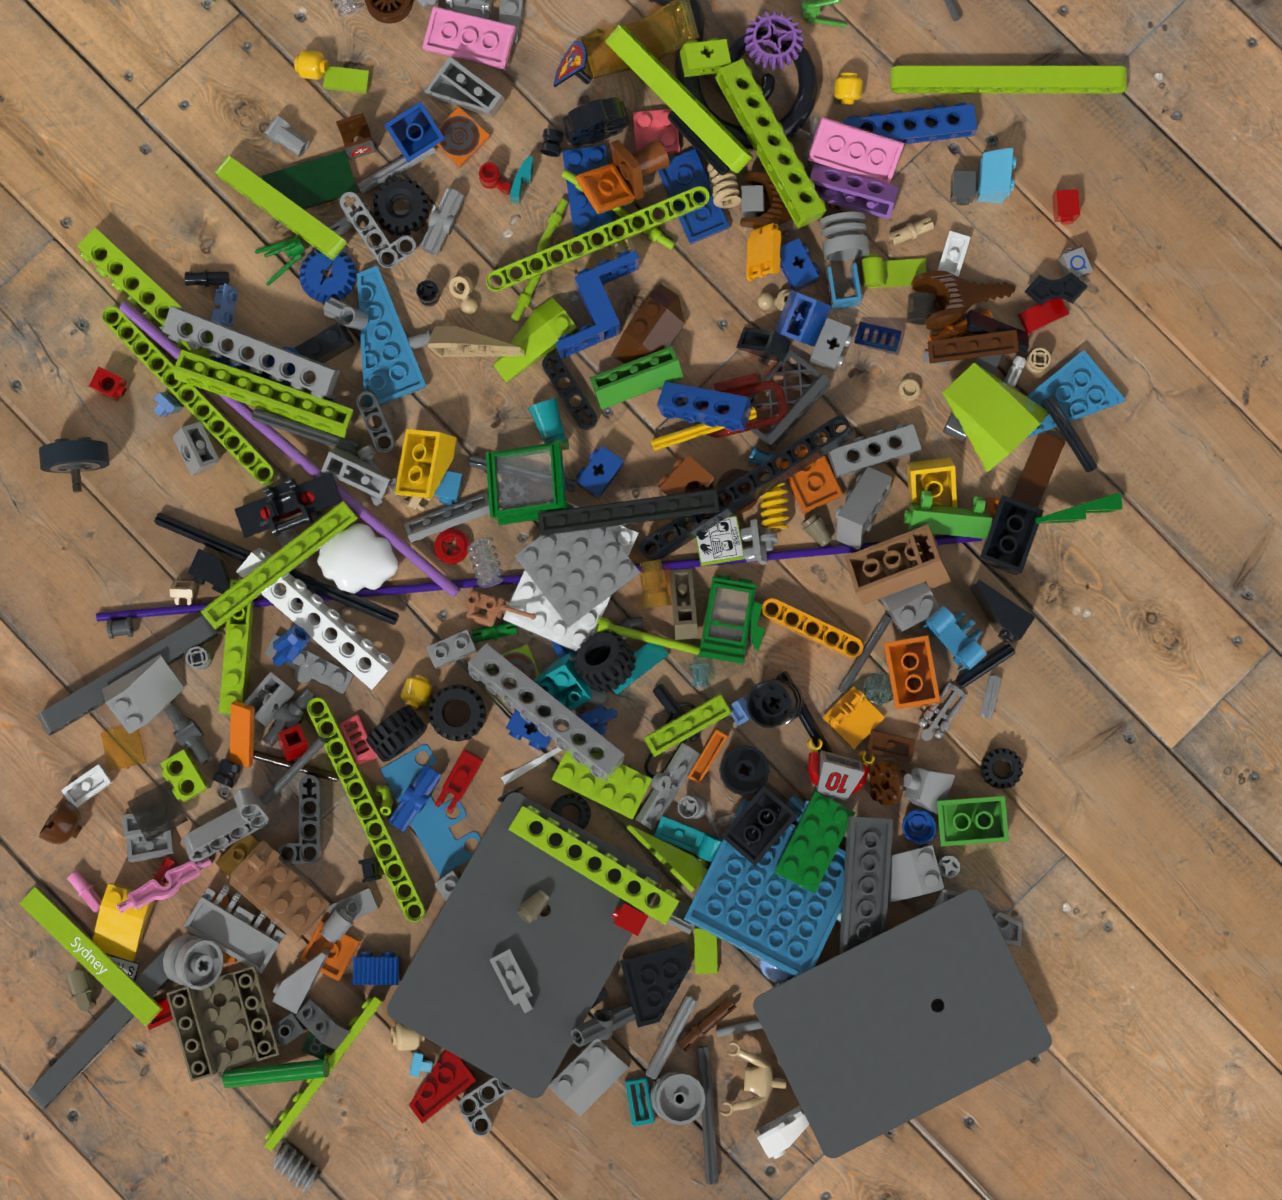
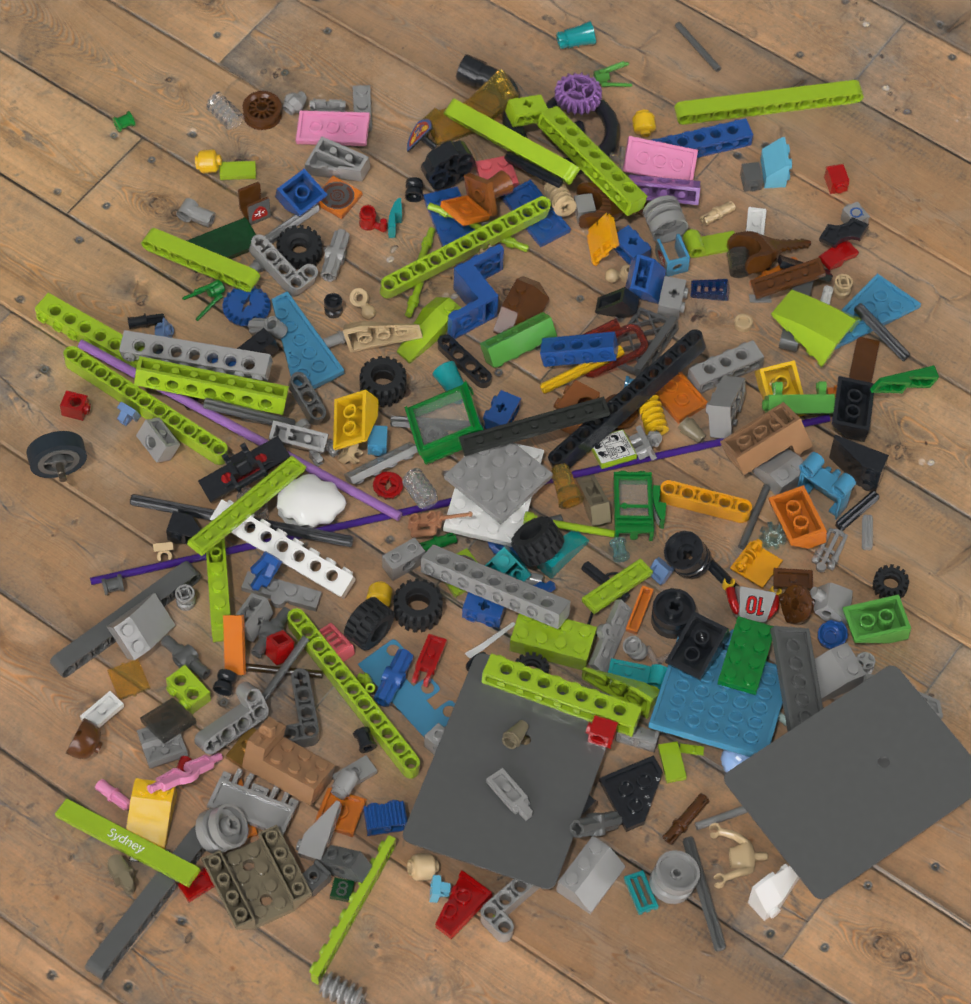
camera: 10 degrees left, 25 degrees down
(276, 1073) = (310, 912): green piece -> none
(464, 391) = (384, 369): none -> black tyre
(671, 1036) = (656, 836): light grey axle -> none

